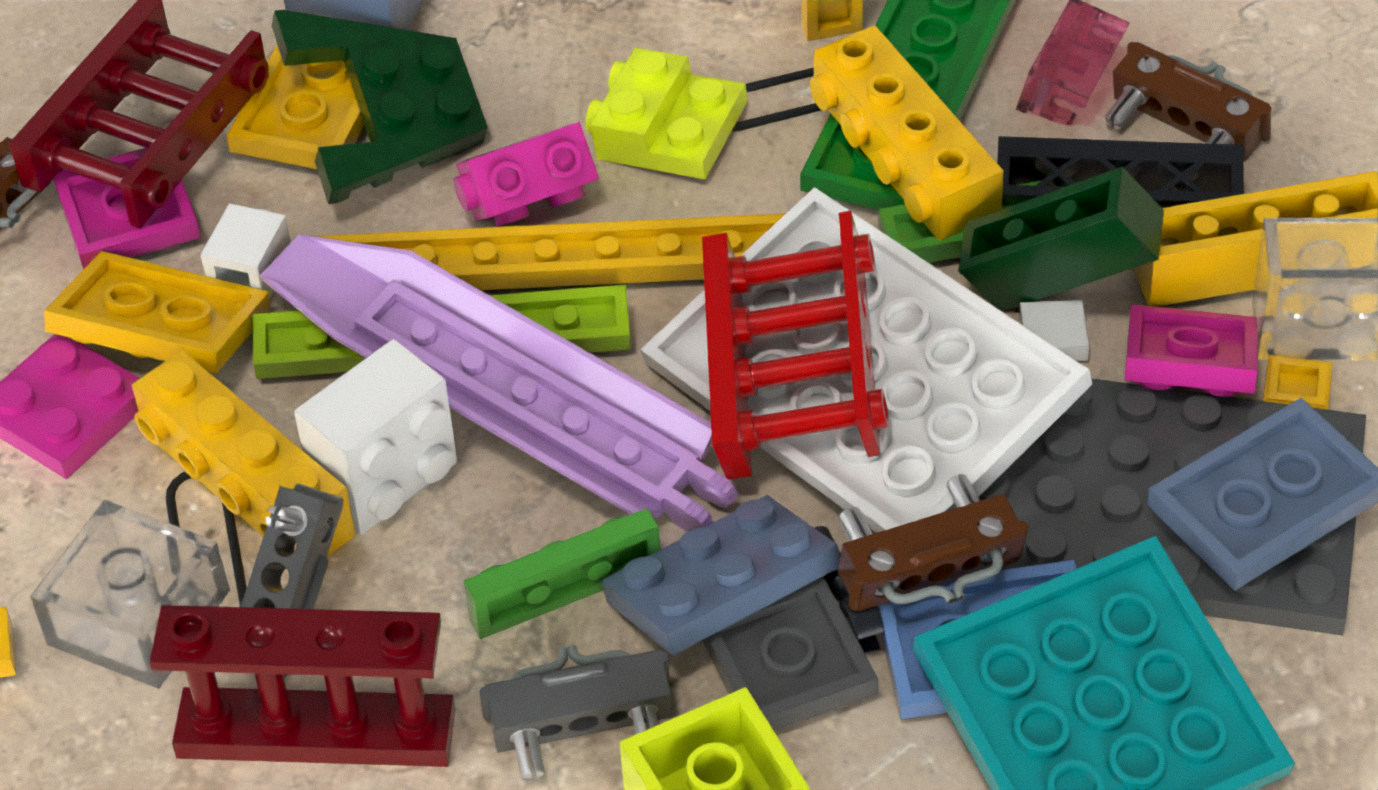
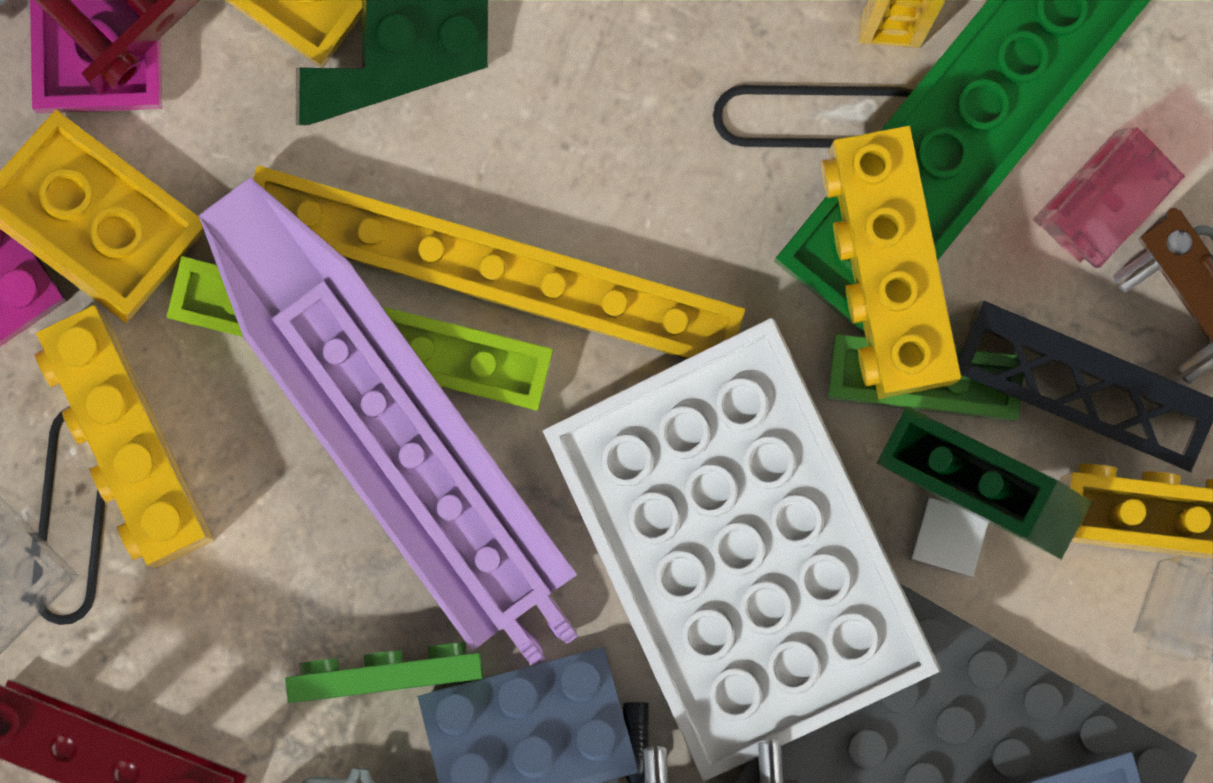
camera: 10 degrees right, 35 degrees up
(245, 246) = (199, 162): white brick -> none
(302, 518) = (121, 620): dark grey piece -> none
(381, 432) = (253, 477): white brick -> none
(524, 172) = (501, 160): dark pink brick -> none
(664, 115) = (671, 116): neon yellow plate -> none
(733, 326) = (630, 474): red fence -> none
(1192, 350) = (1064, 629): dark pink plate -> none
(1297, 378) = (1150, 690): yellow tile -> none

